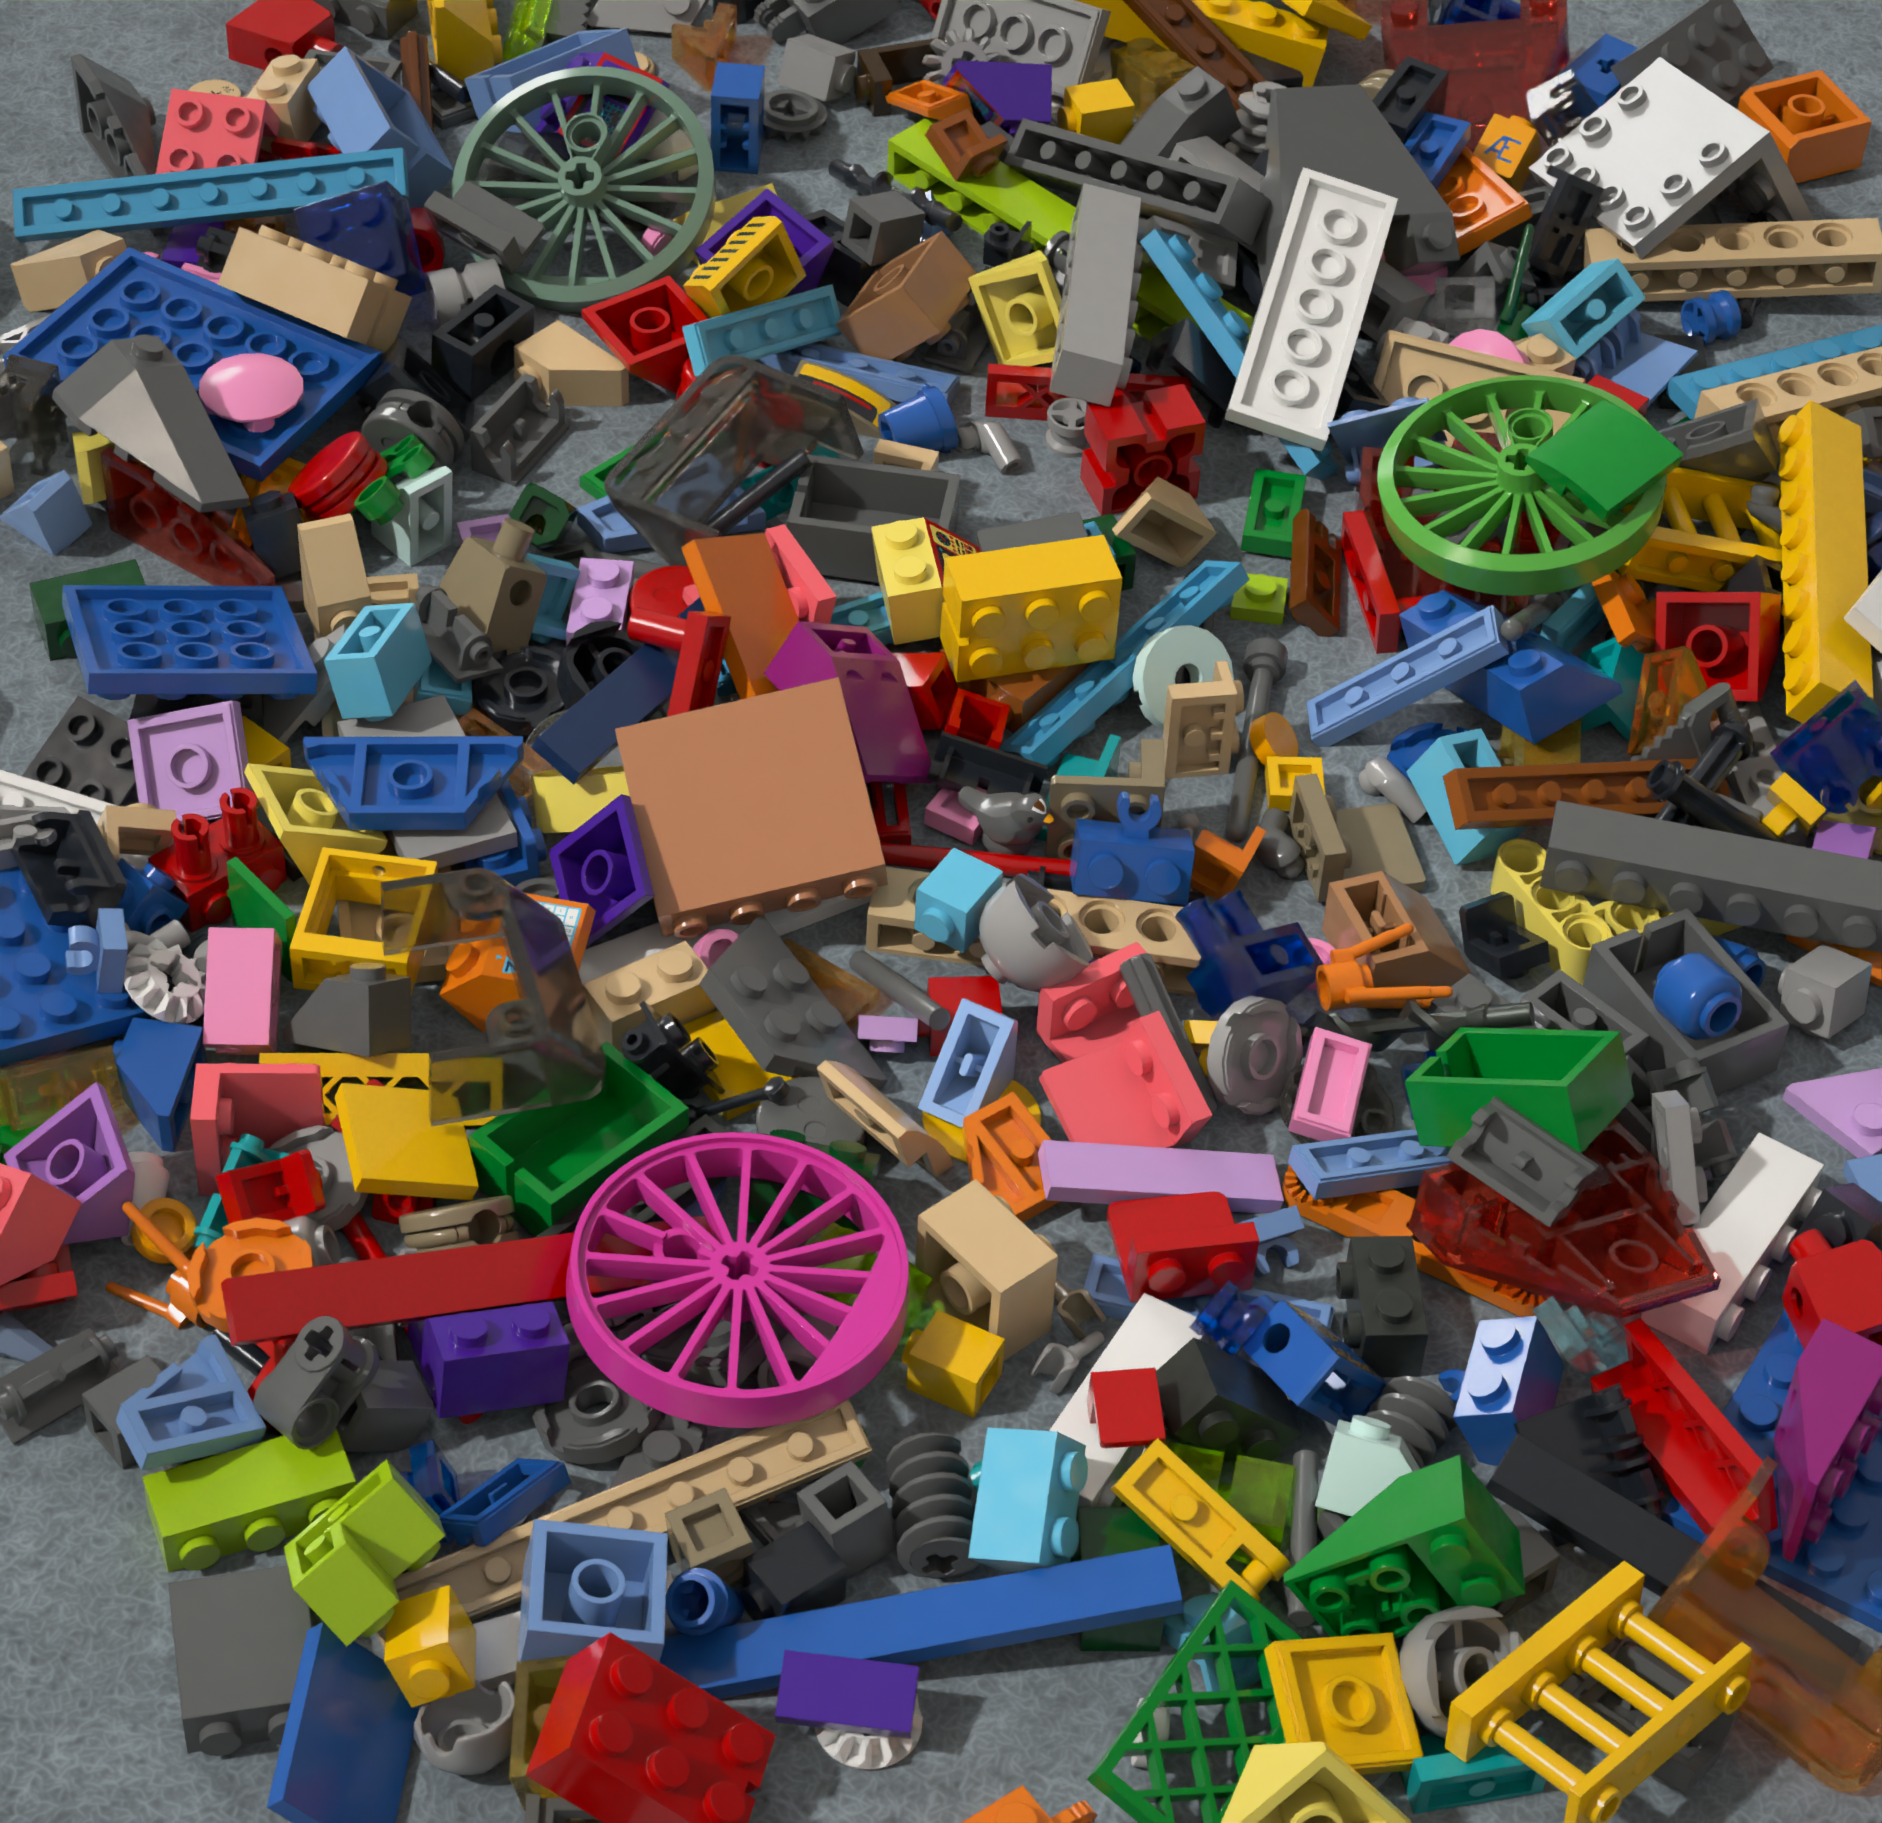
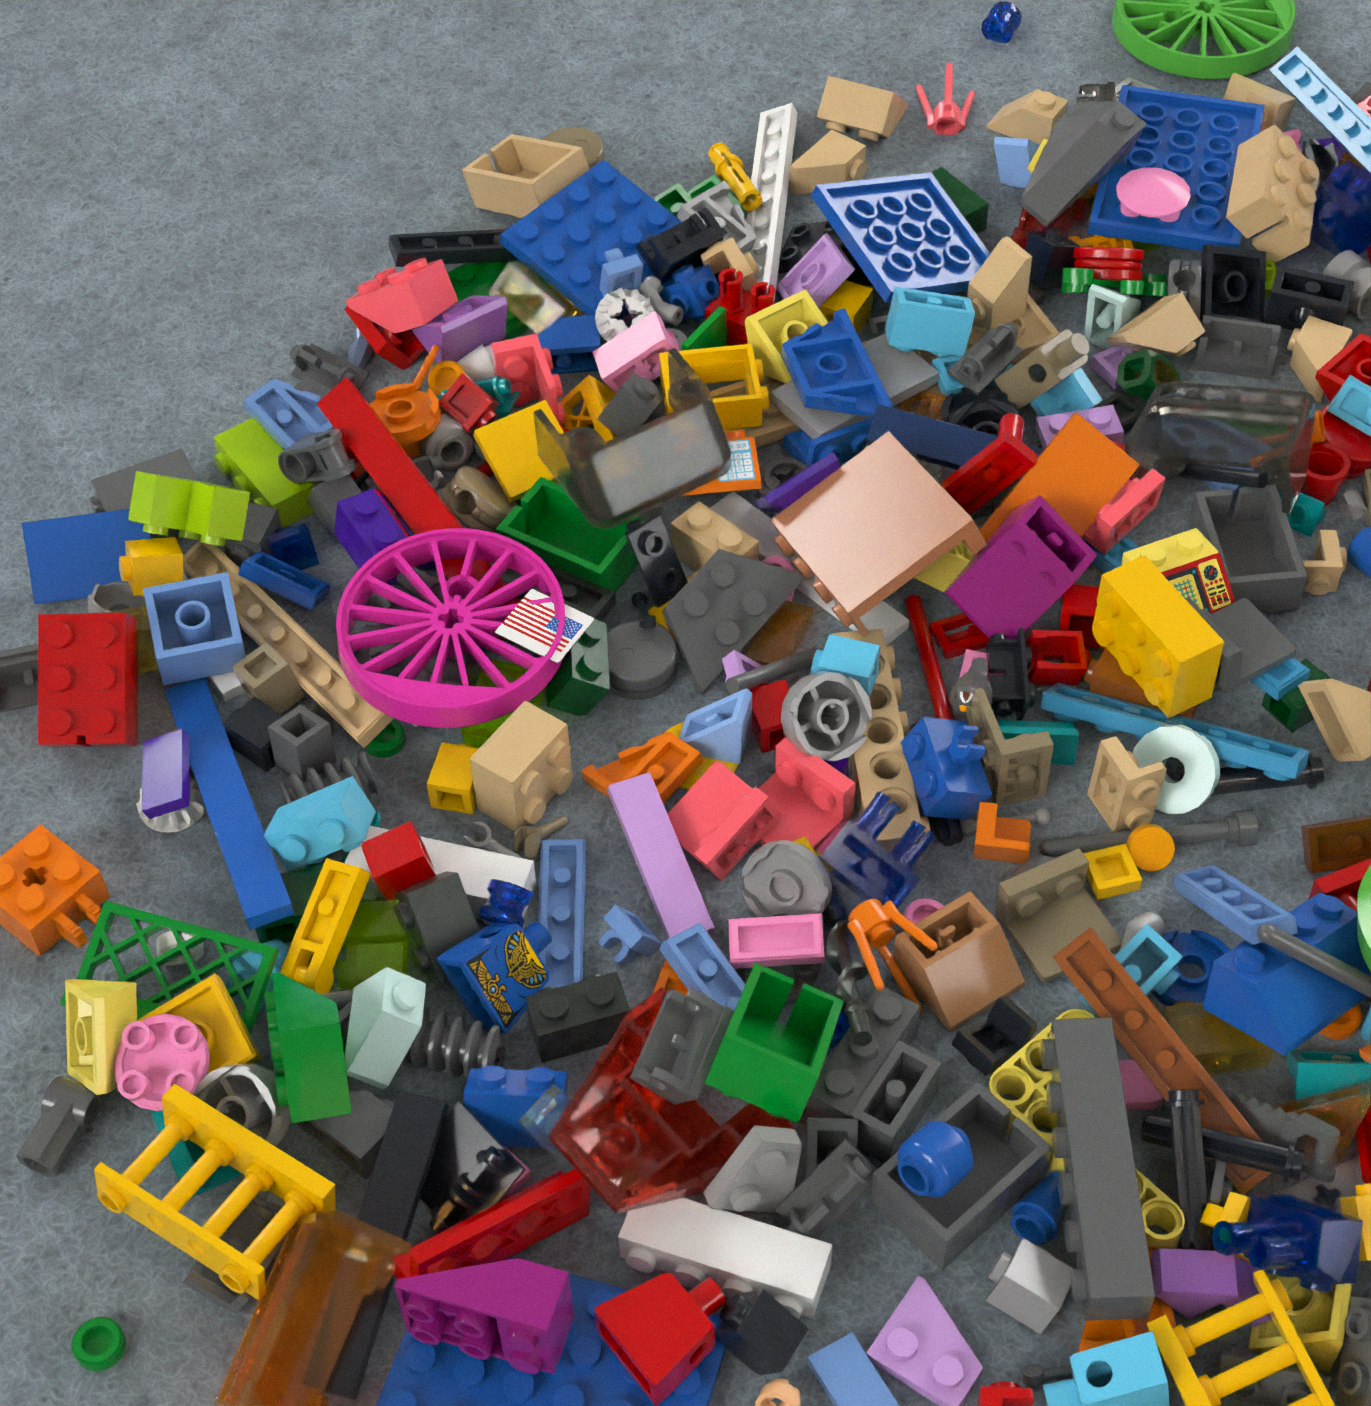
camera: 80 degrees right, 5 degrees up
(481, 468) = (1162, 328): none -> tan slope
(702, 1602) = (221, 687): blue cone -> none
(792, 1180) = (536, 626): none -> sticker
(882, 1118) = (647, 684): tan slope -> none
(1150, 996) = (796, 813): dark grey axle -> none
(1181, 1245) = (589, 876): red bracket -> none
(1260, 600) = (1319, 806): lime plate -> none
(1387, 1734) = (156, 1056): none -> bright pink dish

